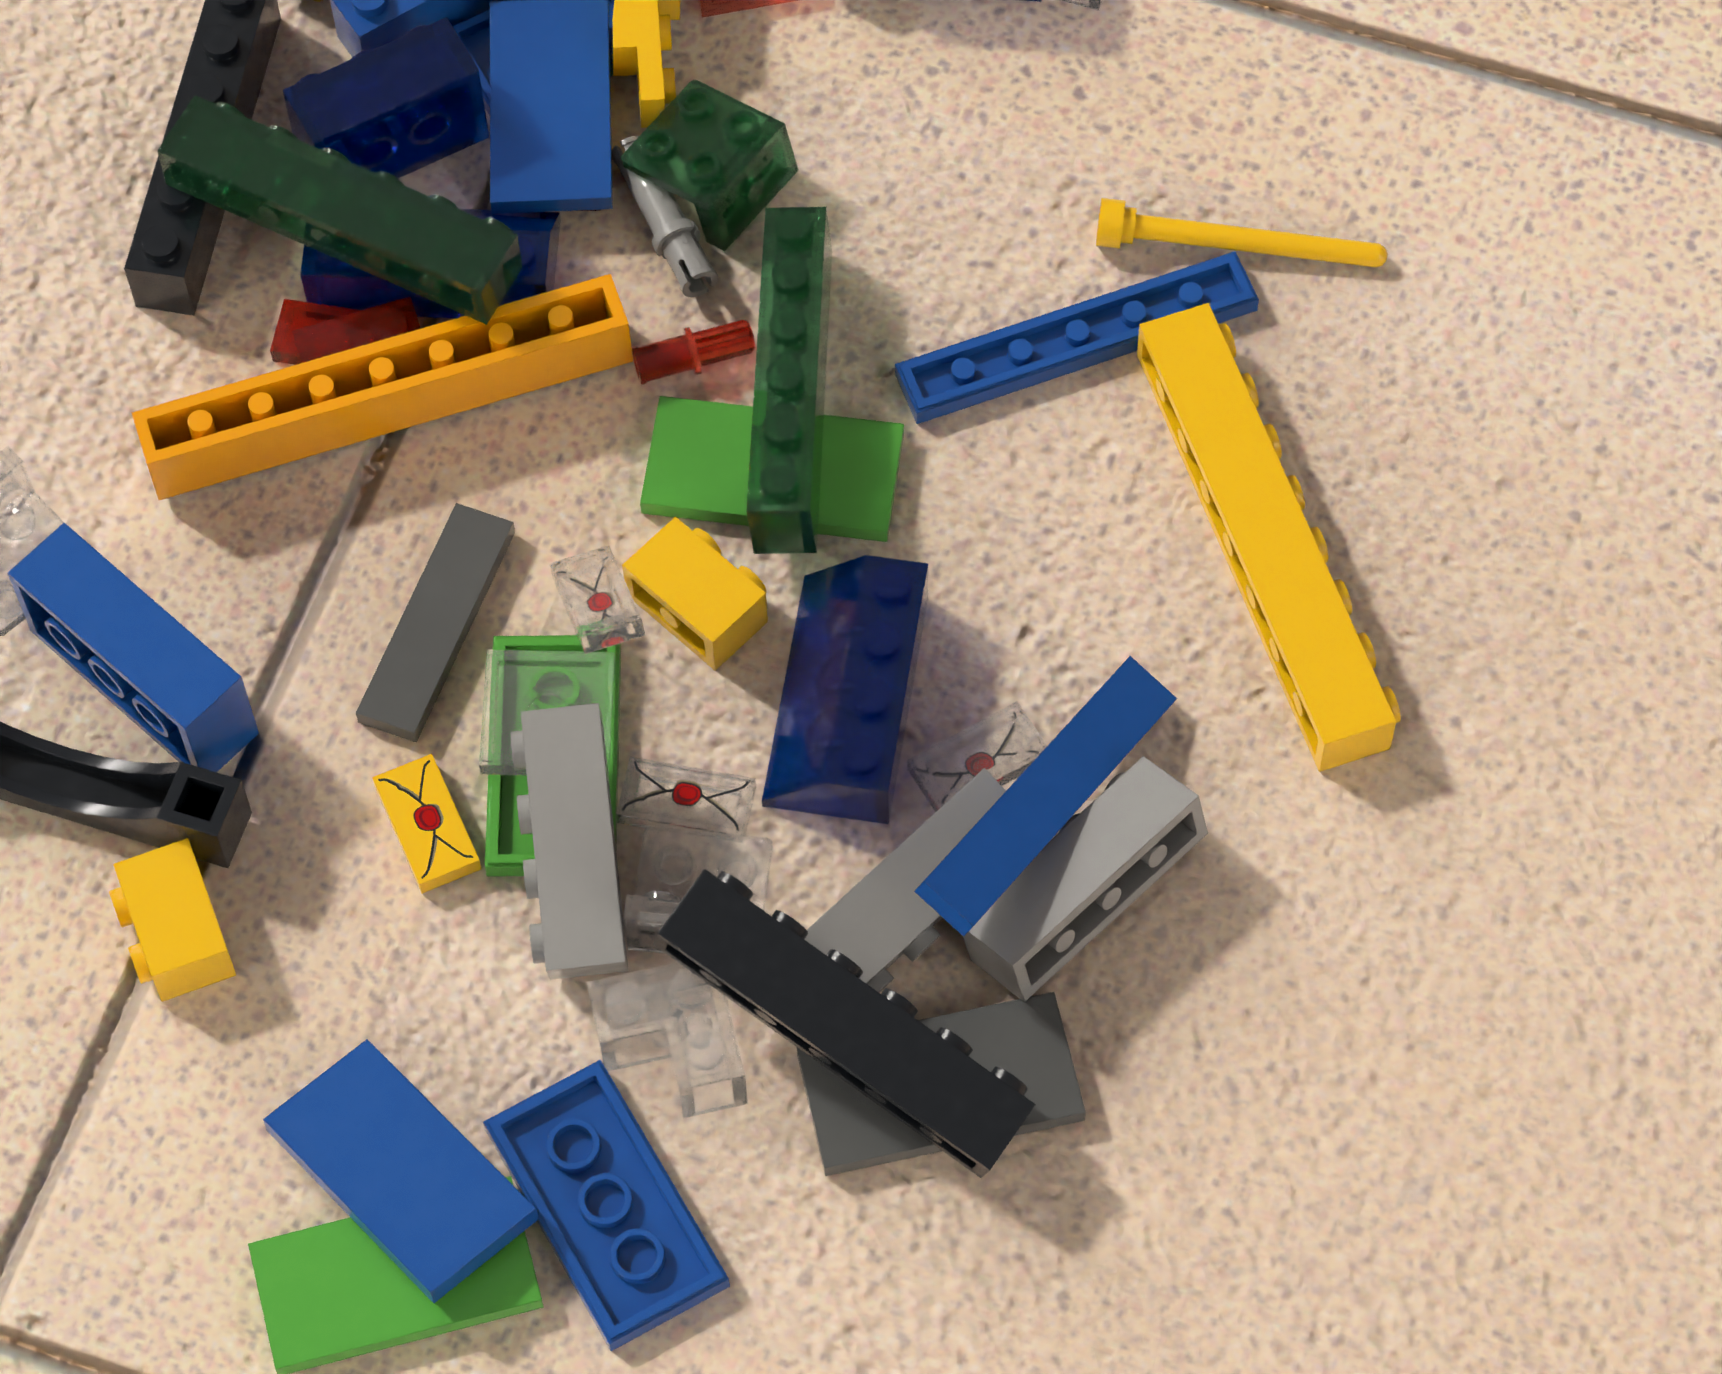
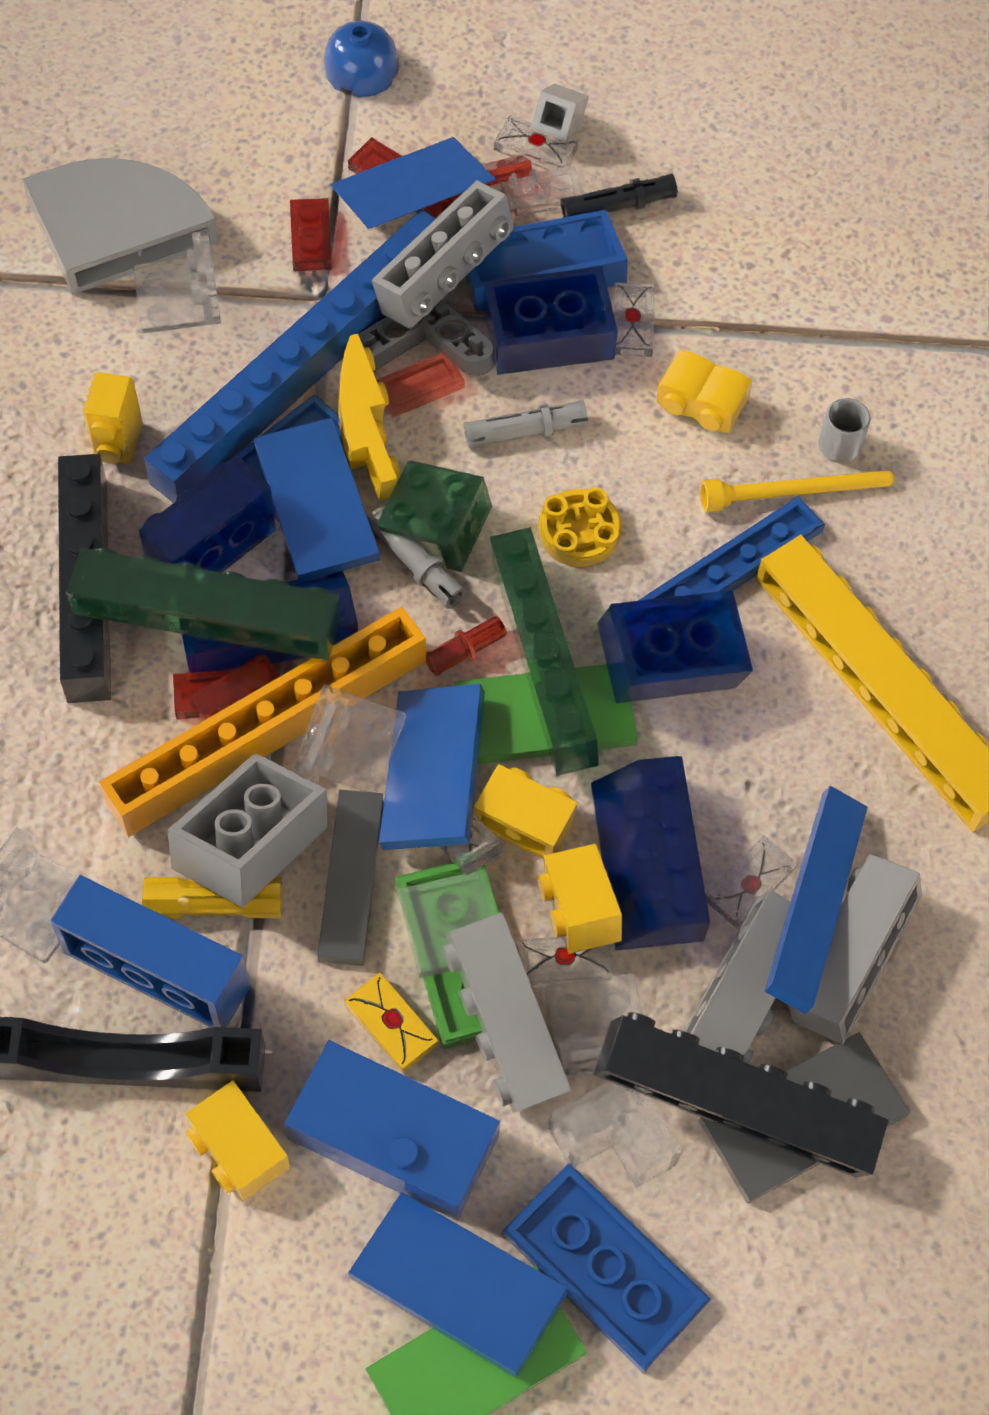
camera: 20 degrees left, 0 degrees up
(288, 614) = (181, 897): none -> yellow axle
(309, 521) = (248, 829): none -> light grey brick
(379, 956) = (392, 1129): none -> blue brick
(484, 439) = (349, 740): none -> clear bracket
(588, 501) = (433, 768): none -> blue tile
(729, 722) = (581, 899): none -> yellow brick
(881, 65) = (527, 423): none -> light grey pin
(909, 225) = (579, 526): none -> yellow tile
(972, 415) = (674, 646): none -> clear blue brick
(1149, 74) = (703, 391): none -> yellow brick
(1336, 150) = (849, 416): none -> light grey piece

